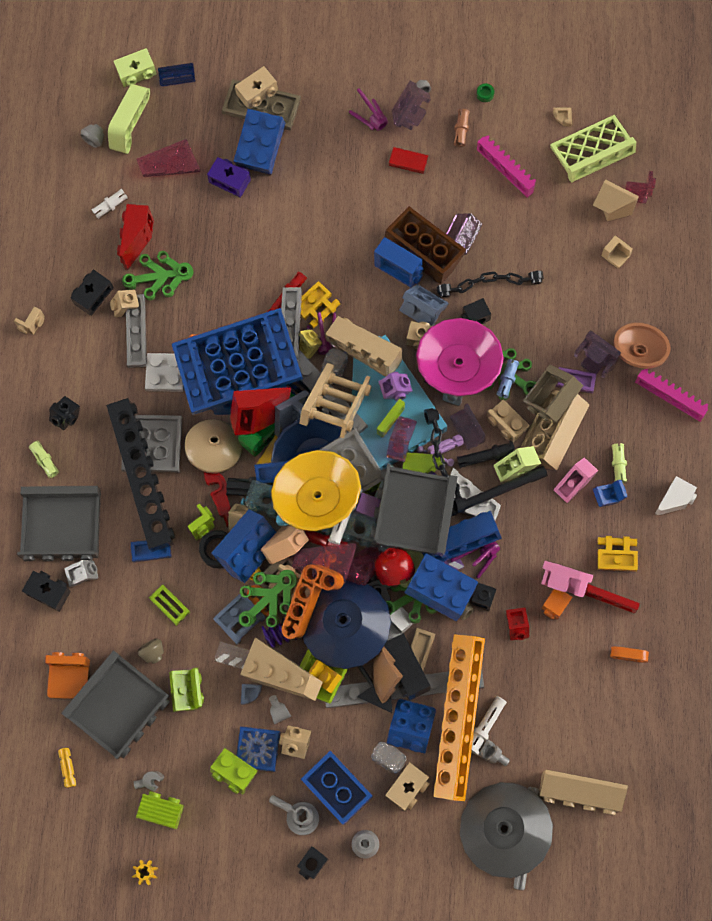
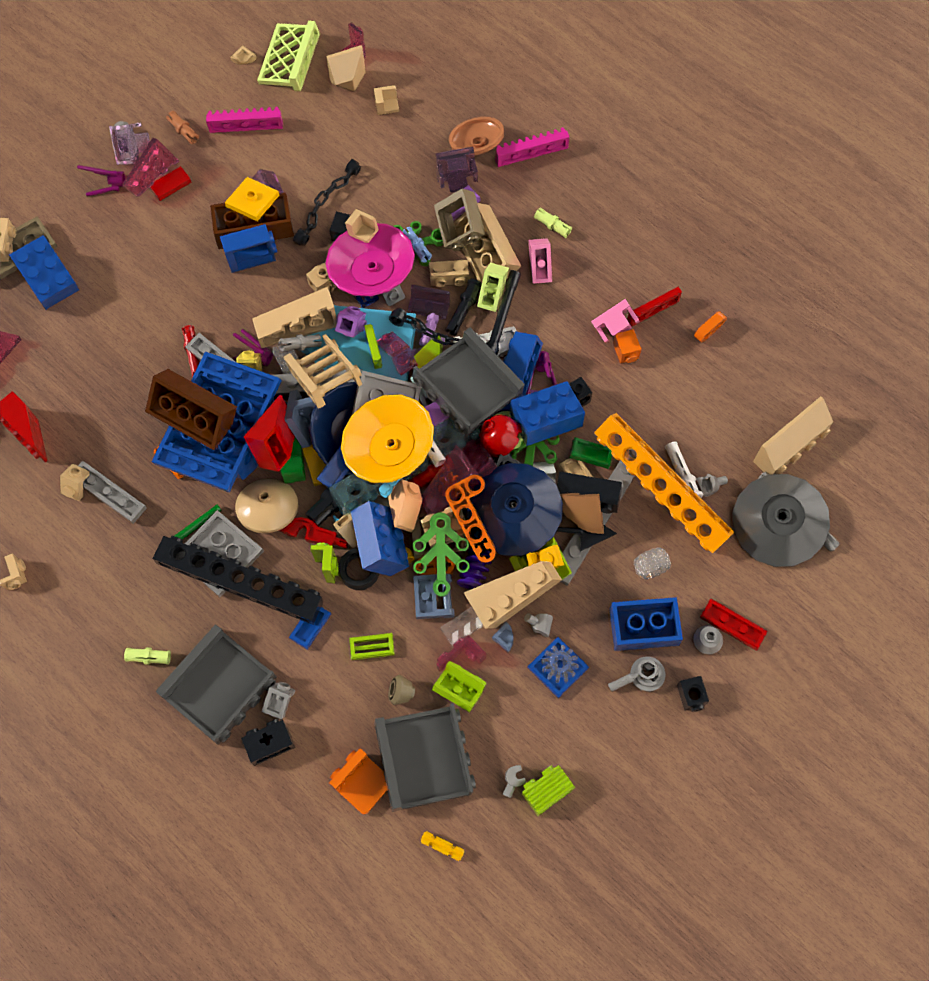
camera: 55 degrees left, 5 degrees down
(64, 413) = (123, 605): black brick -> none
(91, 292) = (38, 502): black brick -> none
(139, 874) = (593, 838): yellow gear -> none
(159, 276) = (78, 436): bright green plant -> none
(160, 409) = (197, 523): none -> green piece
(163, 373) = (166, 496): white plate -> none
(220, 678) = (473, 651): none -> clear pink bracket
(227, 336) = (190, 408): none -> reddish brown slope
(232, 771) = (563, 700): lime bracket -> none
(233, 184) = (49, 319): dark purple brick -> none
(295, 742) = (579, 628): tan brick -> none
(313, 299) = (216, 333): yellow plate -> none
(349, 364) = (300, 342): none -> light grey pin
(393, 854) = (733, 624): none -> red tile
(407, 135) = (150, 165): none -> clear pink wing
(409, 775) = (684, 579): tan brick -> none
(411, 726) = (639, 528): blue bracket -> none
(422, 305) = (299, 260): sand blue bracket -> none
(438, 231) = (252, 199): none -> yellow plate
(442, 642) = (591, 453): none -> green tile
(479, 328) = (361, 226): none -> tan panel
(485, 92) = (170, 92): green tile -> none
(518, 623) = (620, 385): red bracket -> none
(610, 493) = (572, 244): blue bracket -> none
(617, 559) = (628, 280): yellow plate -> none
(677, 496) = (613, 202): white slope -> none

